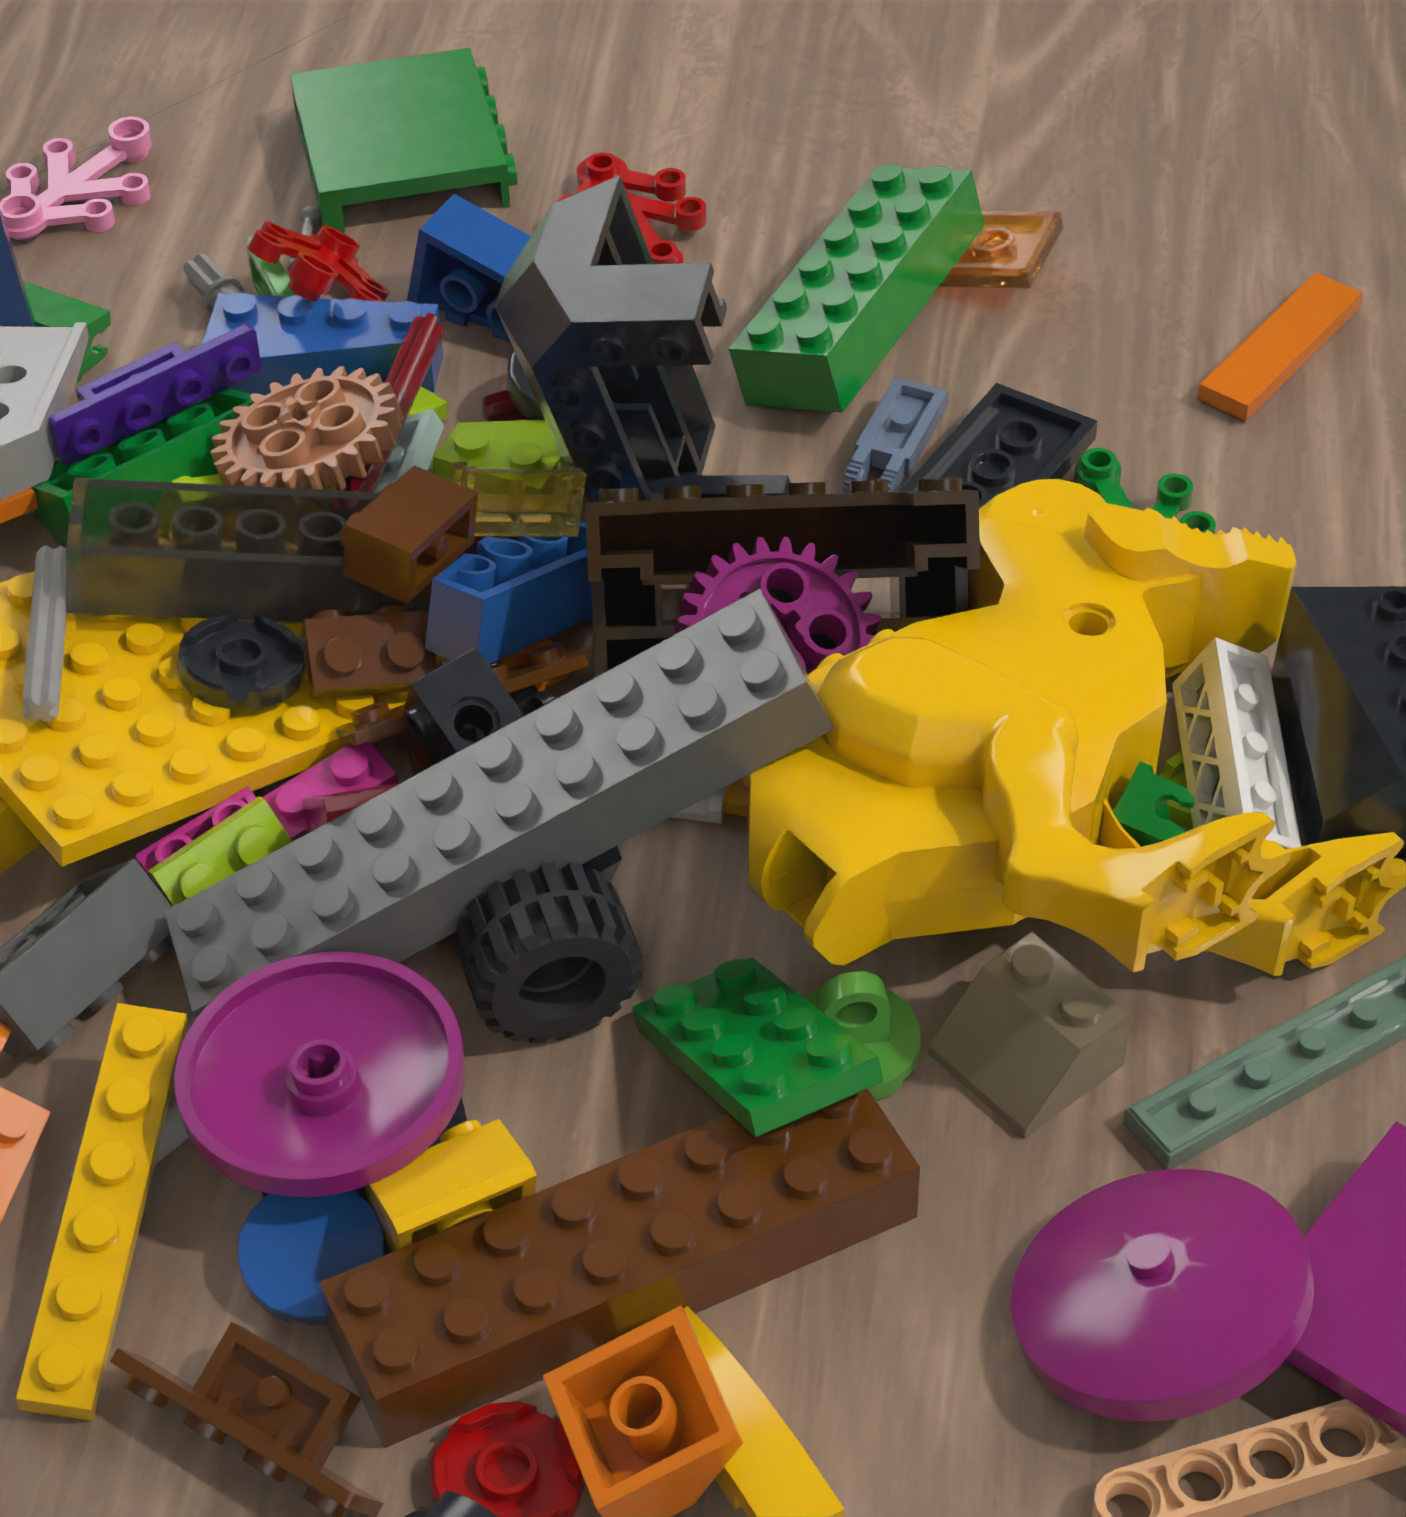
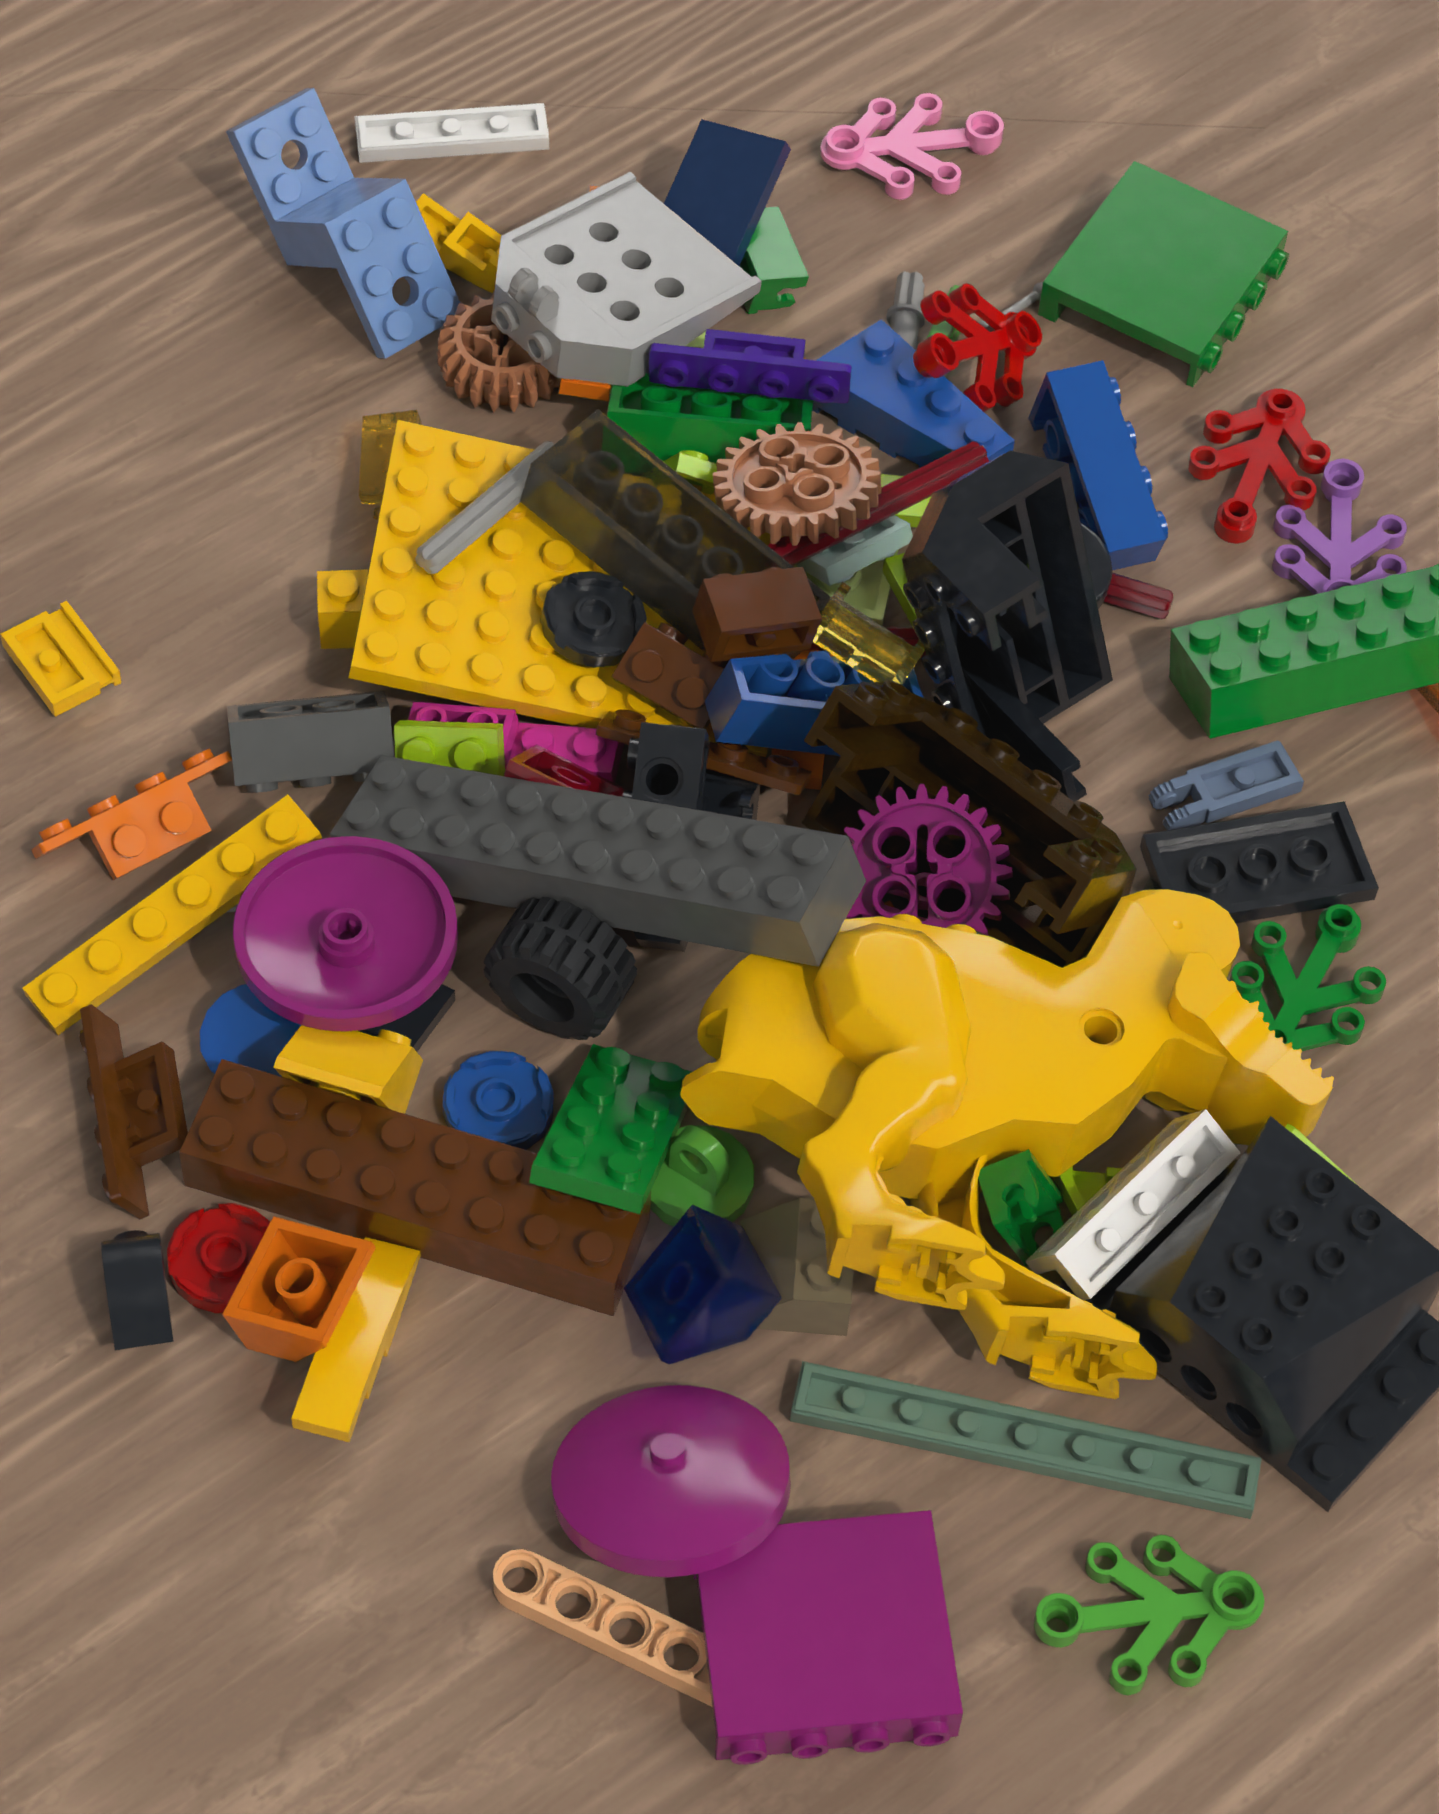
camera: 40 degrees right, 10 degrees up
(597, 1118) = (499, 1099): none -> blue tile
(736, 266) = (1340, 485): none -> medium lavender plant
(986, 1115) = (701, 1288): none -> clear blue slope

